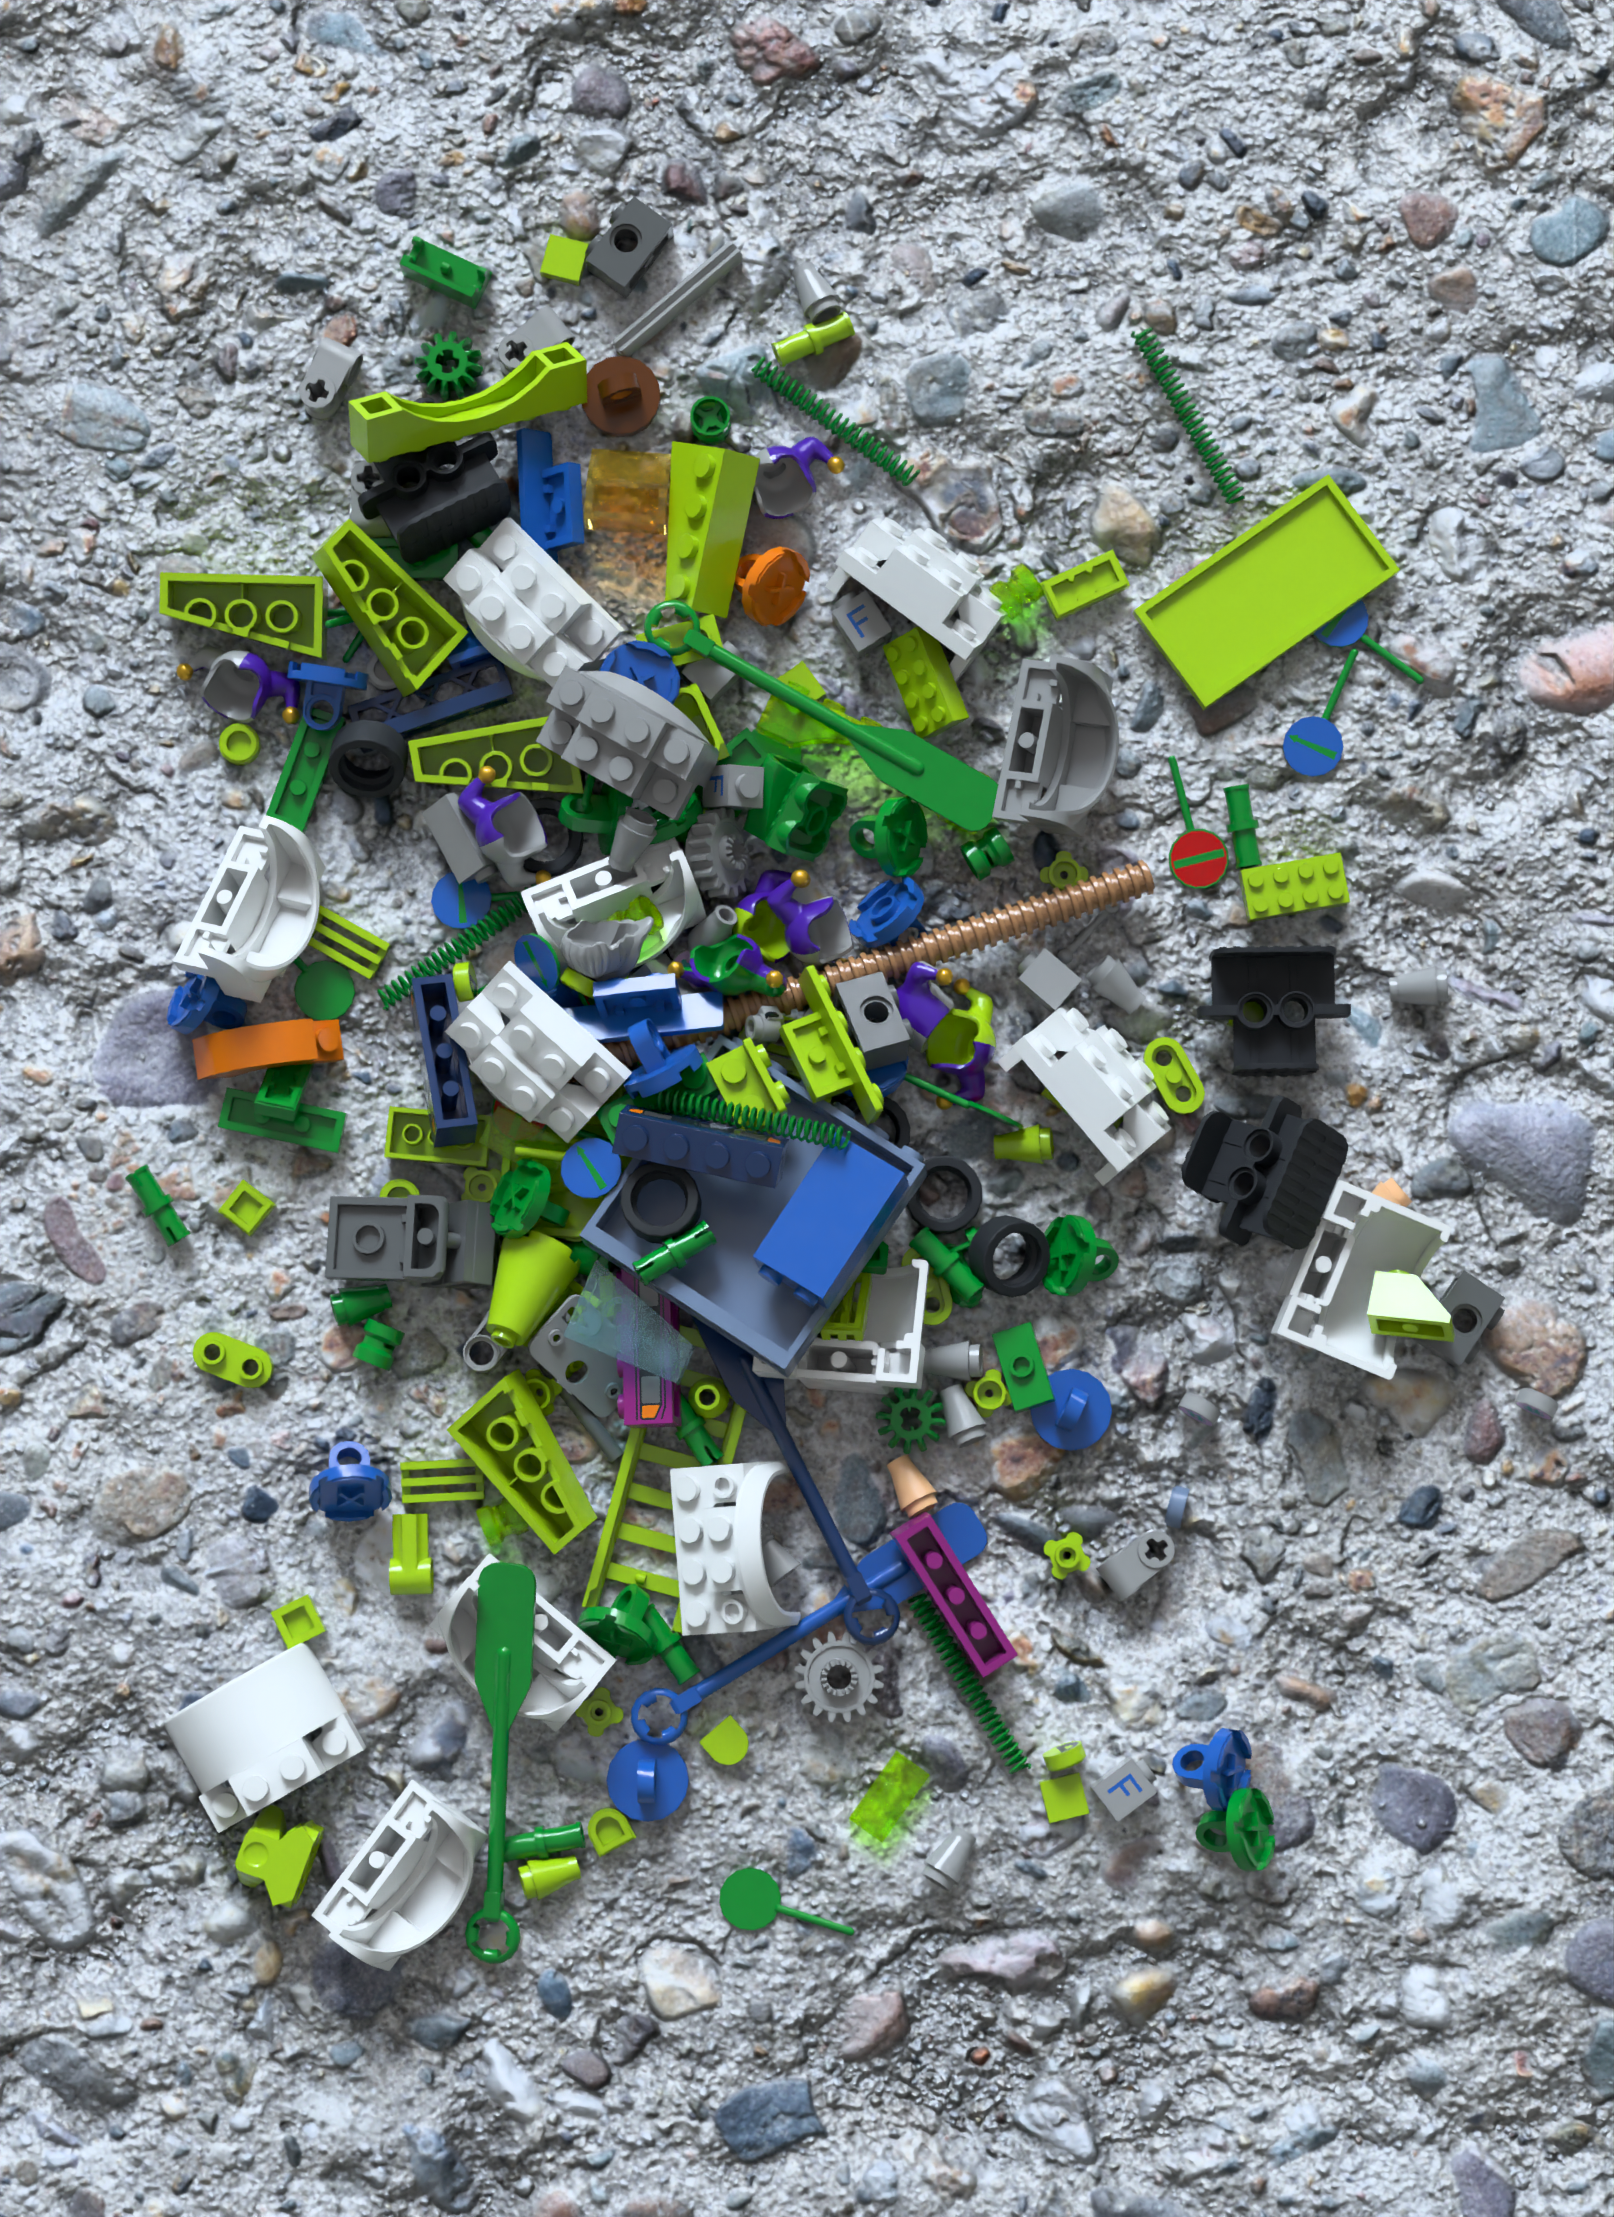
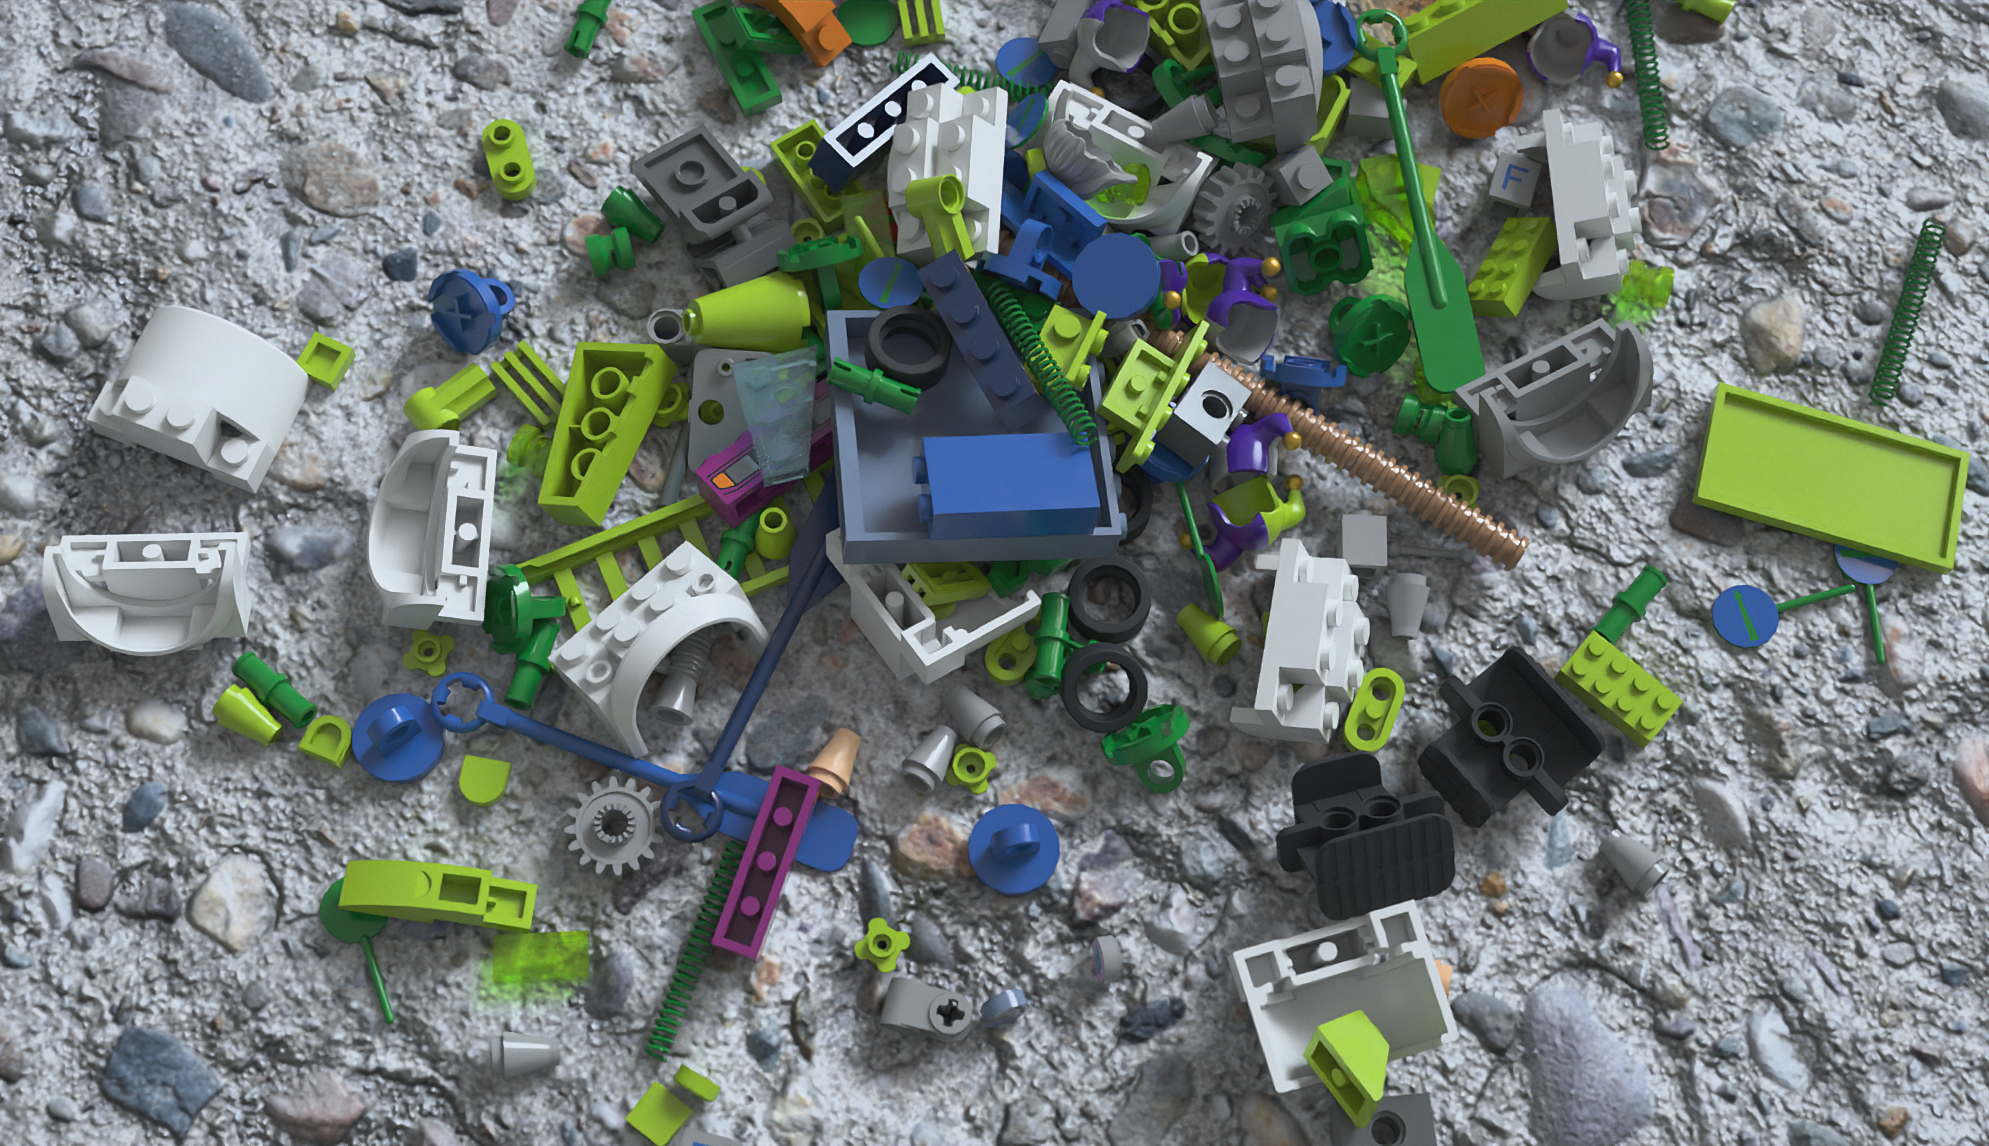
camera: 45 degrees right, 15 degrees down
(247, 1208) = (643, 83): lime tile -> none
(278, 1855) = (99, 479): lime piece -> none
(503, 1681) = (388, 540): green piece -> none
(573, 1093) = (938, 204): none -> lime piece
(725, 1004) = (1116, 277): none -> blue tile
(791, 1836) = (438, 892): none -> lime slope
(896, 1420) = (876, 712): green gear -> none
(1023, 1367) = (1017, 778): green plate -> none
(1029, 846) = (1456, 443): none -> green cone
(1084, 585) = (1701, 333): lime plate -> none
(1198, 855) = (1571, 593): piece -> none

